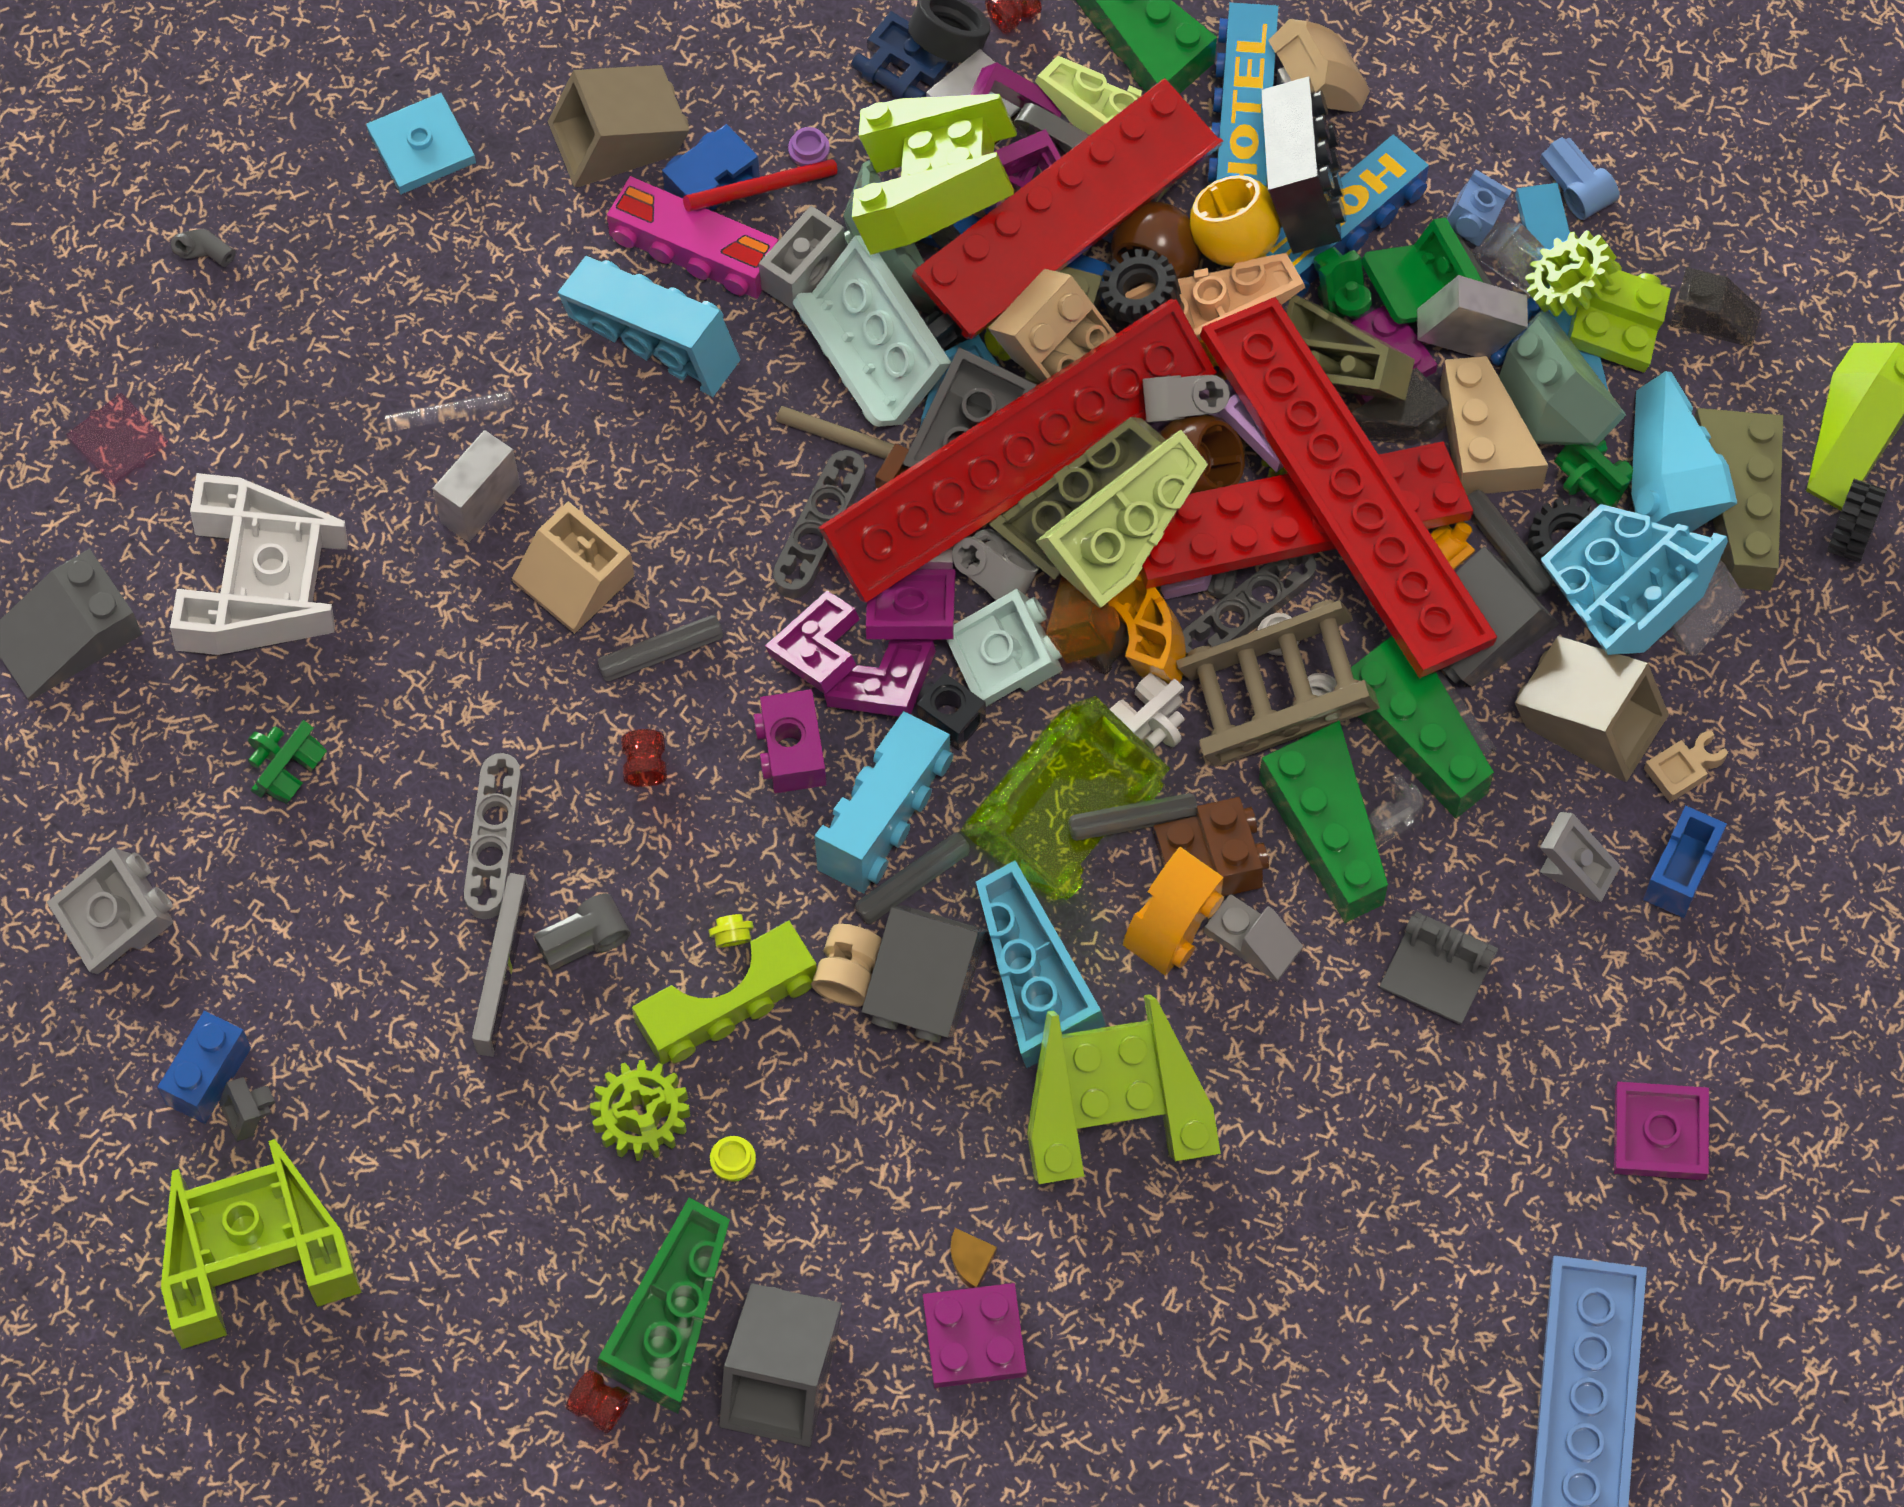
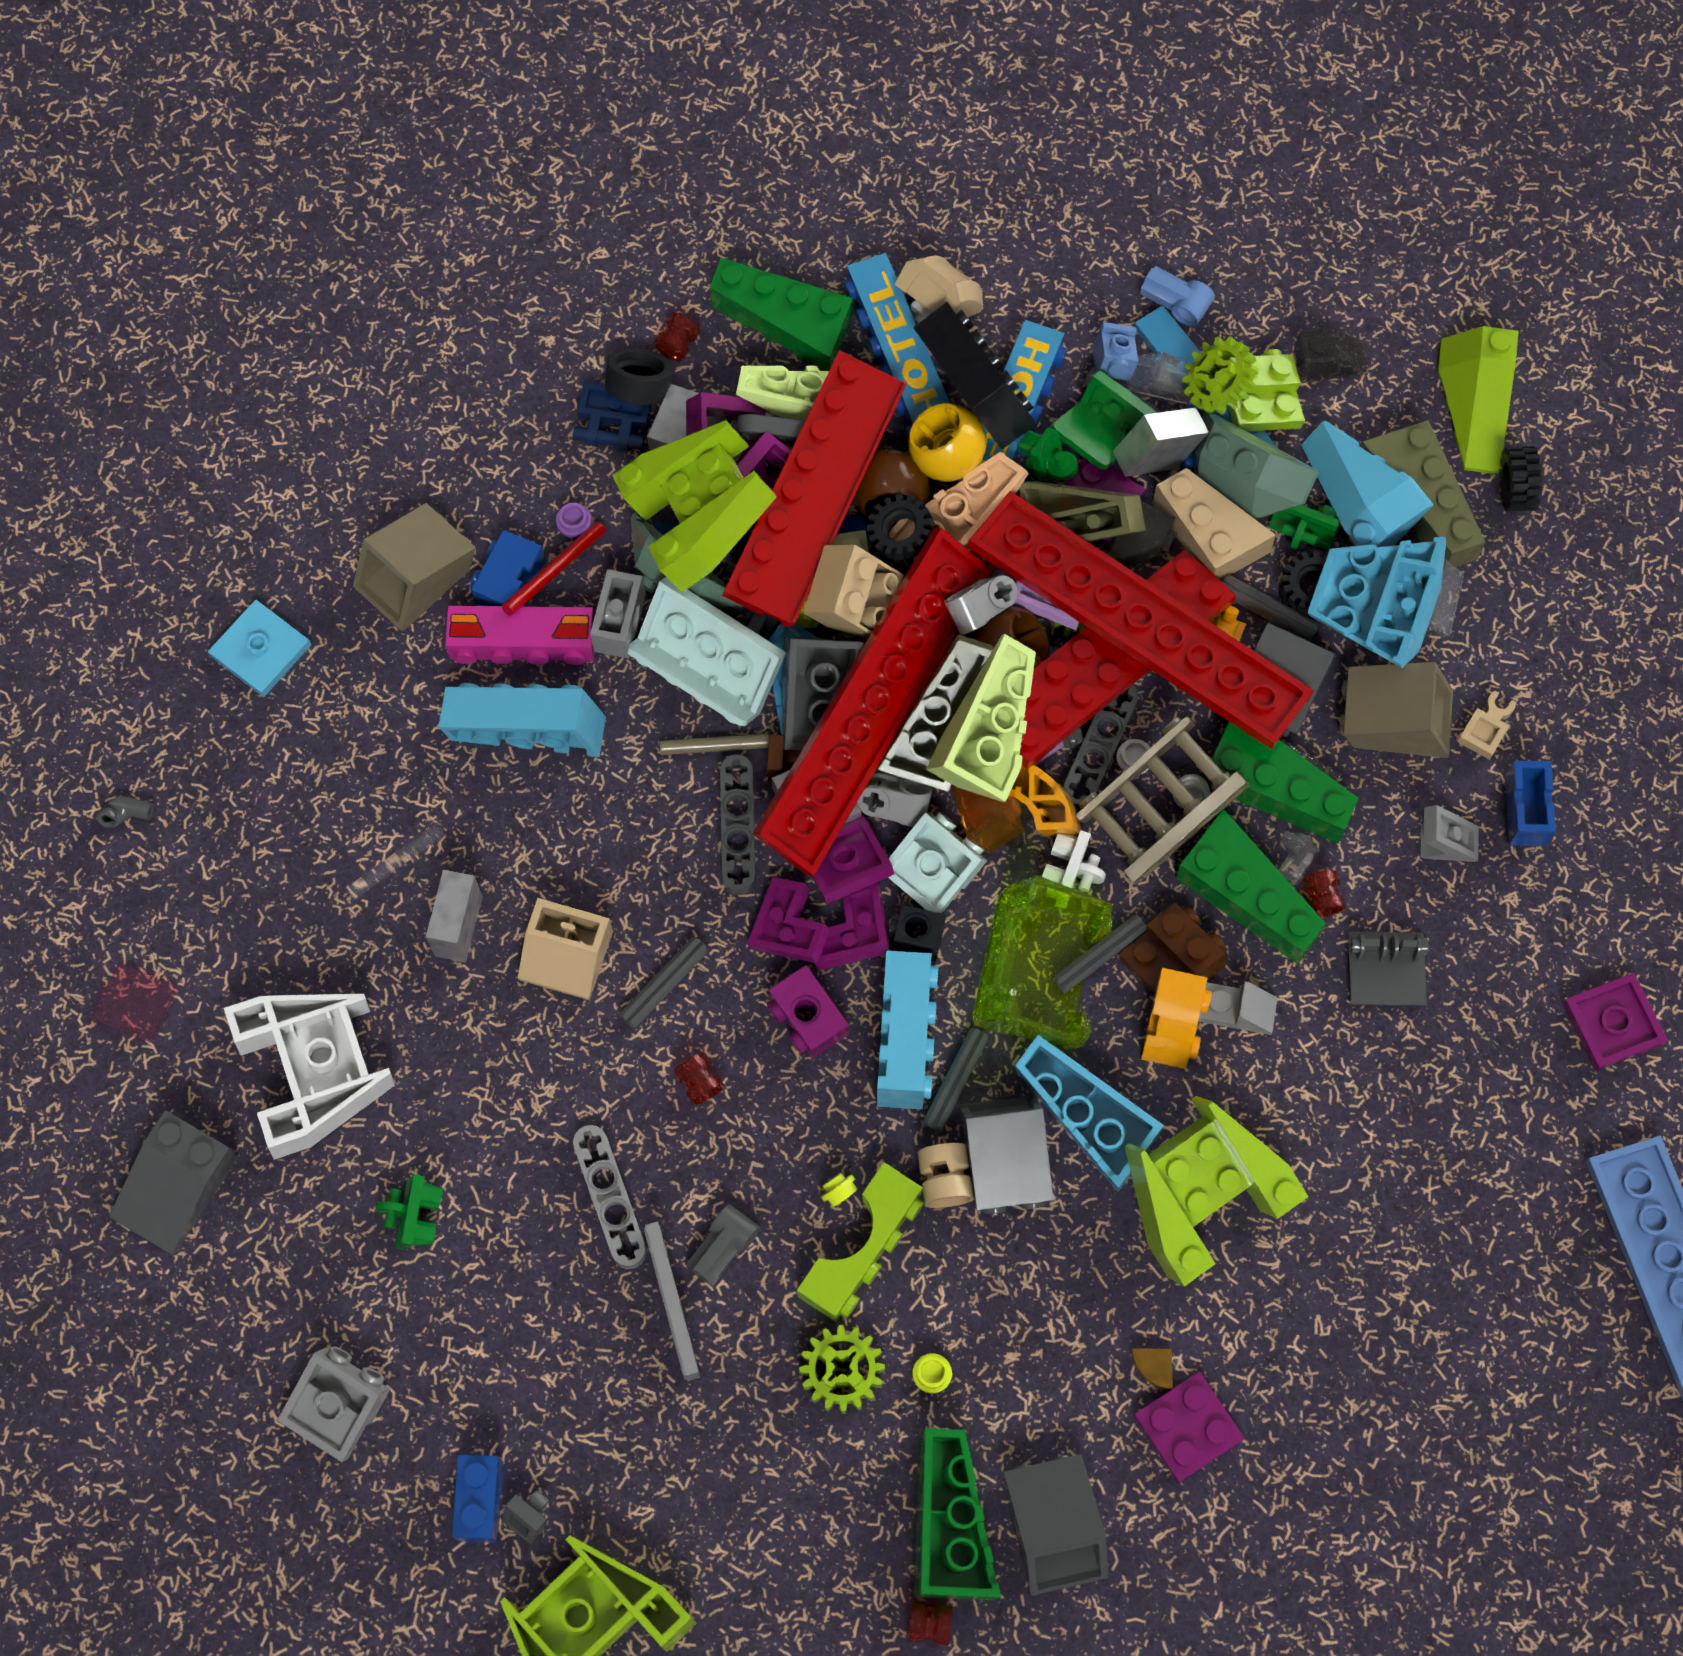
camera: 25 degrees left, 5 degrees up
(1408, 859) = (1323, 892): none -> clear red wheel

